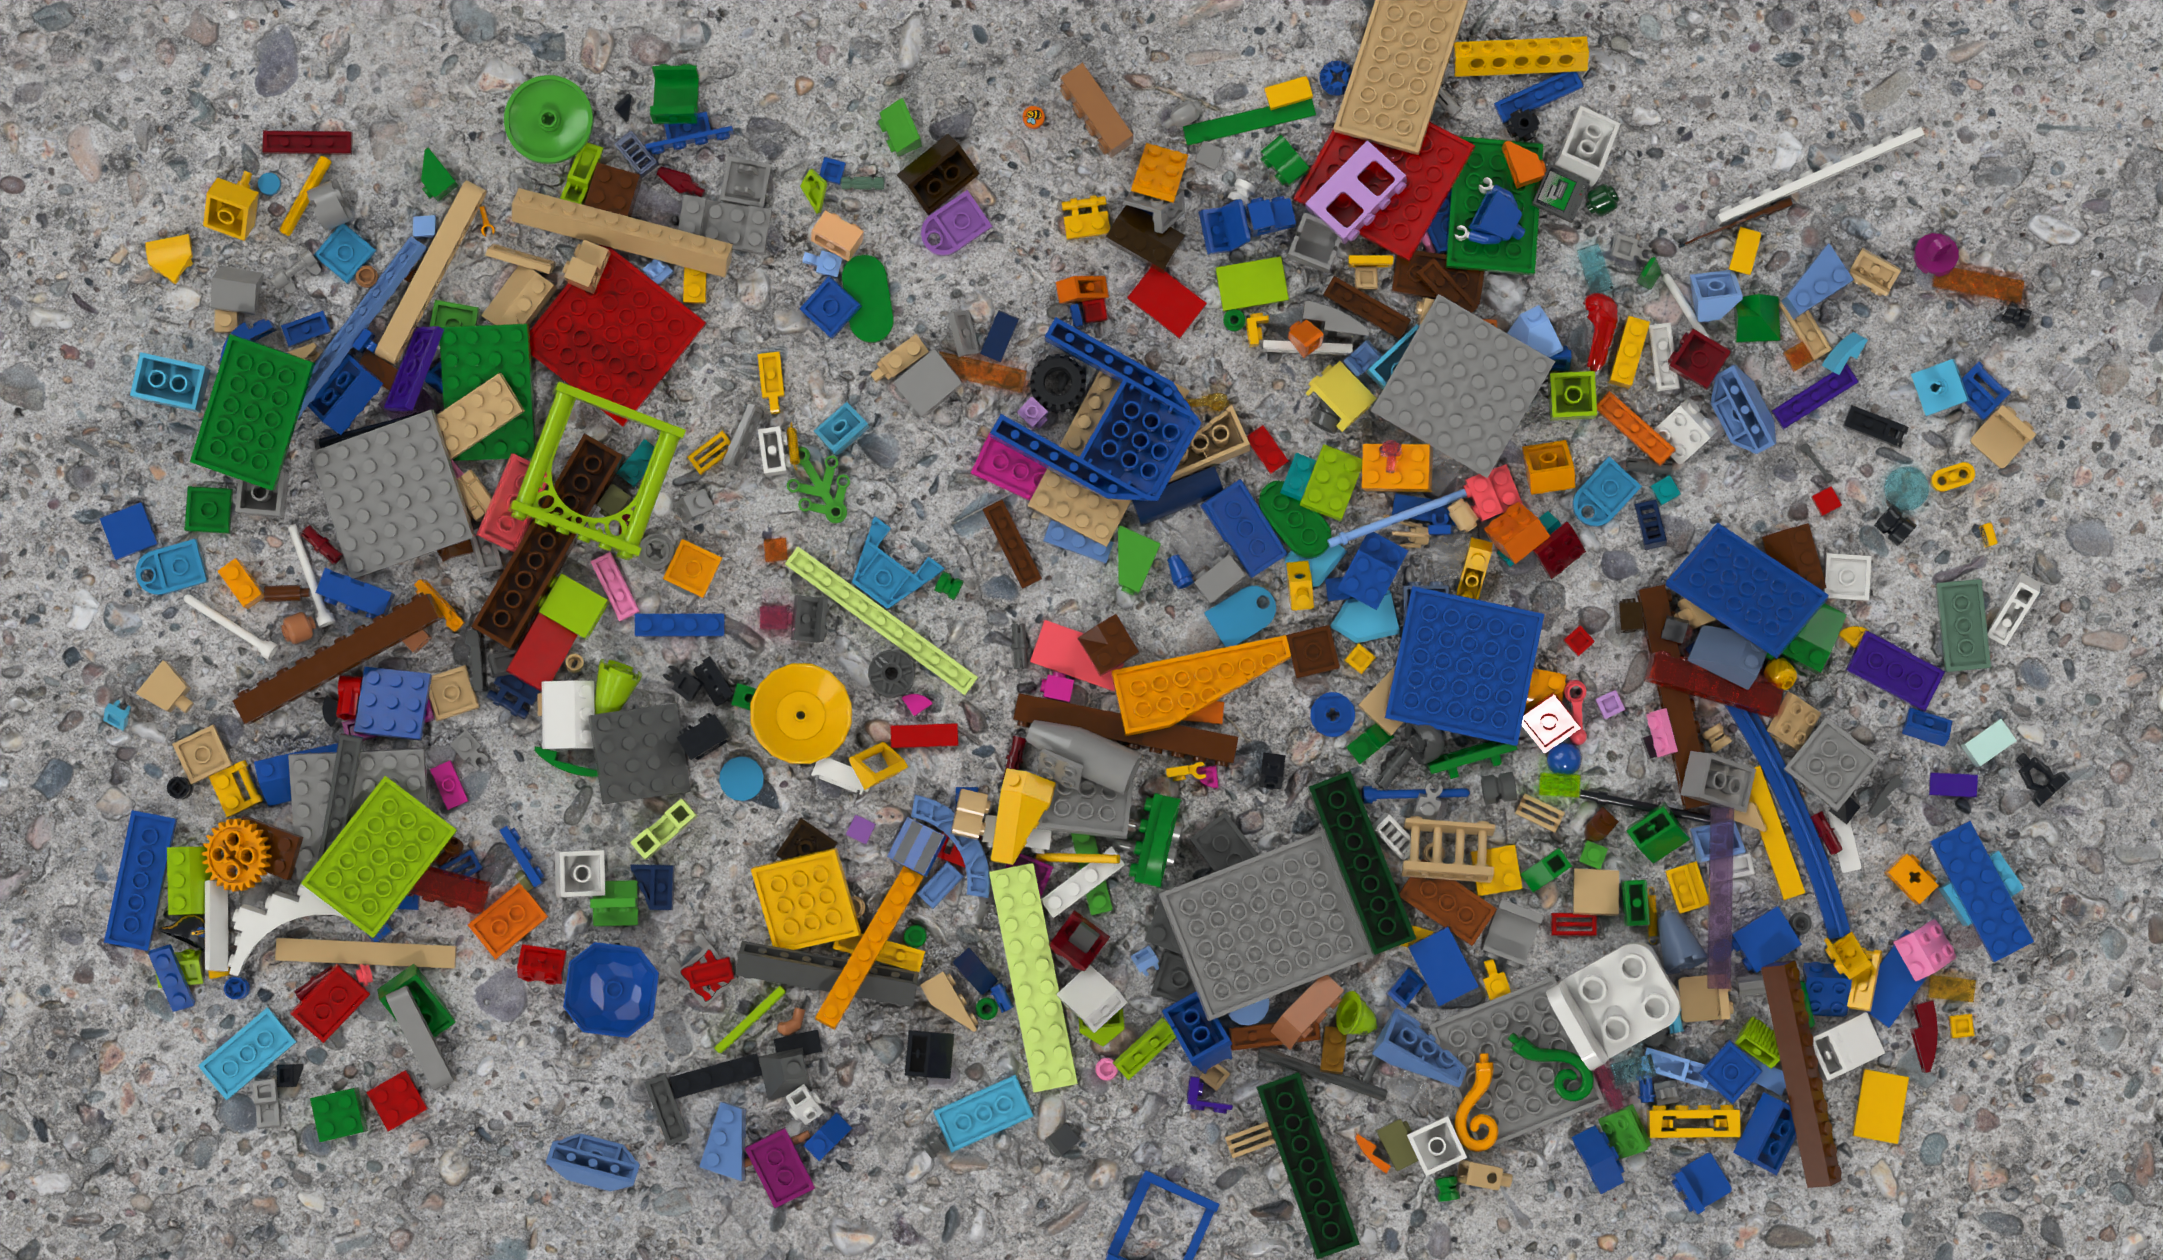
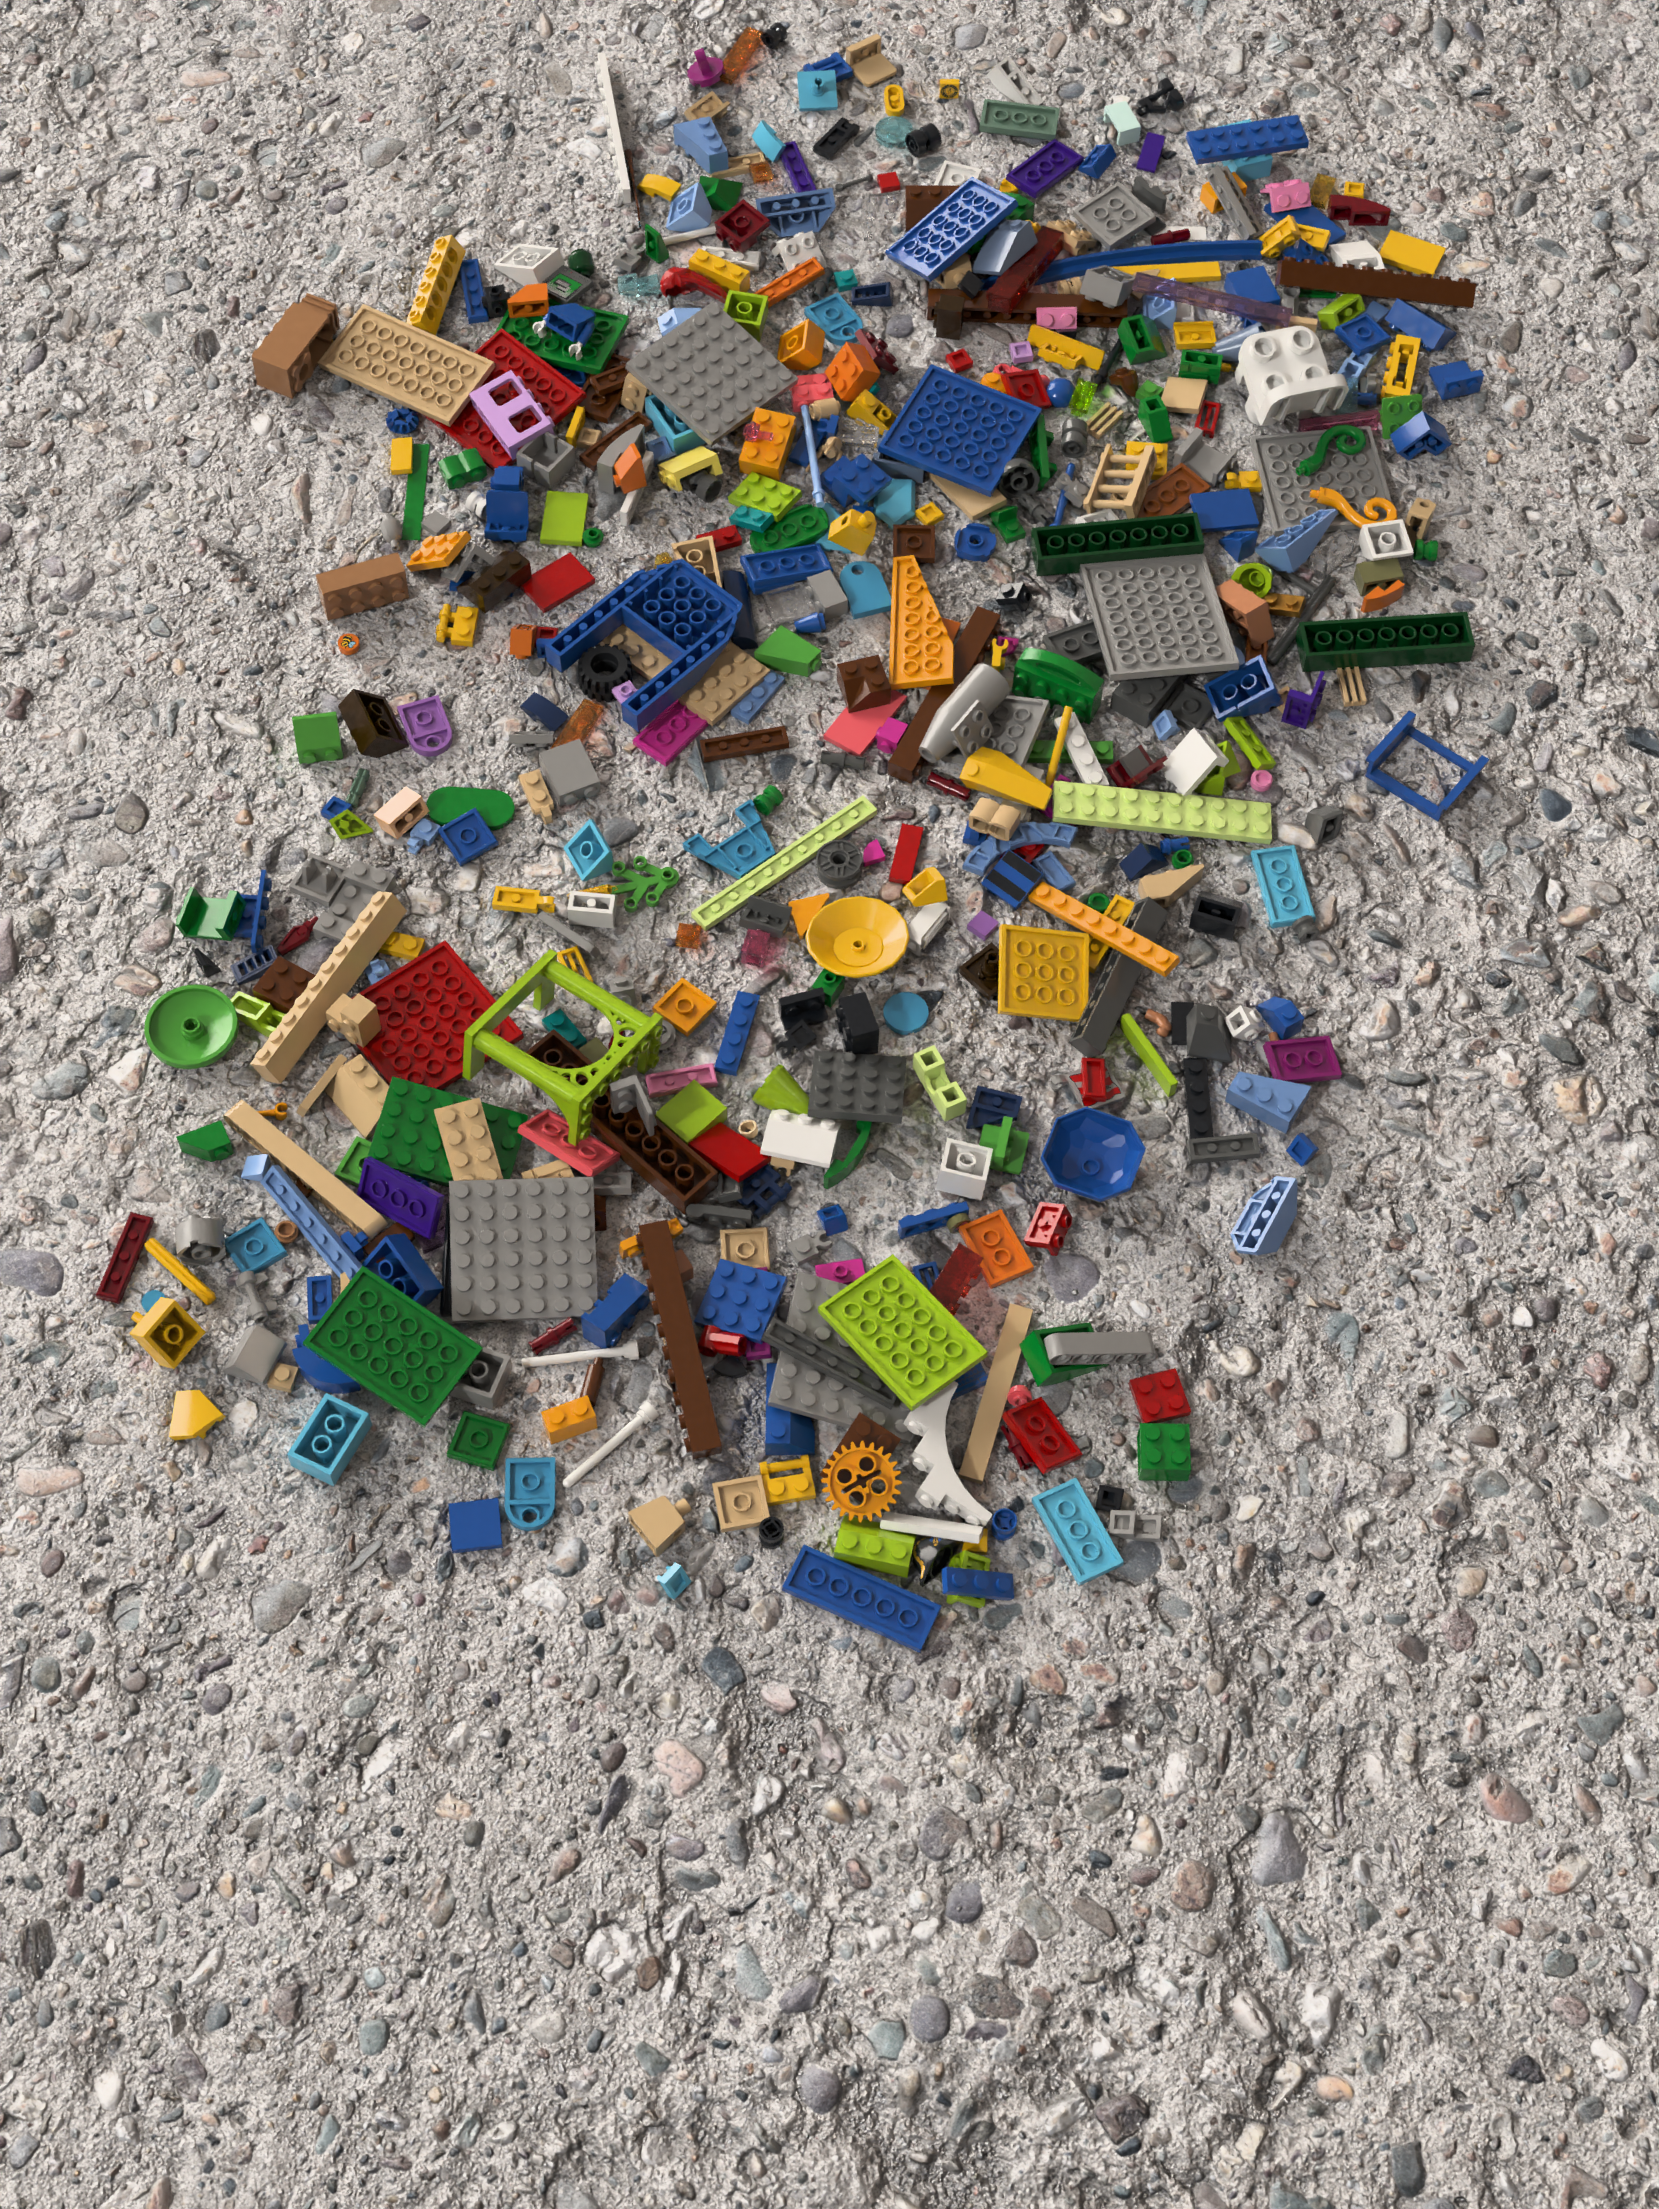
camera: 80 degrees left, 25 degrees down
(298, 628) = (633, 1377): nougat head -> none
(504, 764) = (833, 1220): none -> blue slope
(556, 557) = (629, 1094): none -> light grey bracket
(682, 1185) = (1302, 1149): none -> blue tile
(831, 655) = (804, 910): none -> light orange tile
(1253, 332) = (607, 523): yellow bracket -> none
(1621, 749) = (1064, 350): none -> yellow bracket
(1881, 892) = (1234, 209): none -> light grey fence

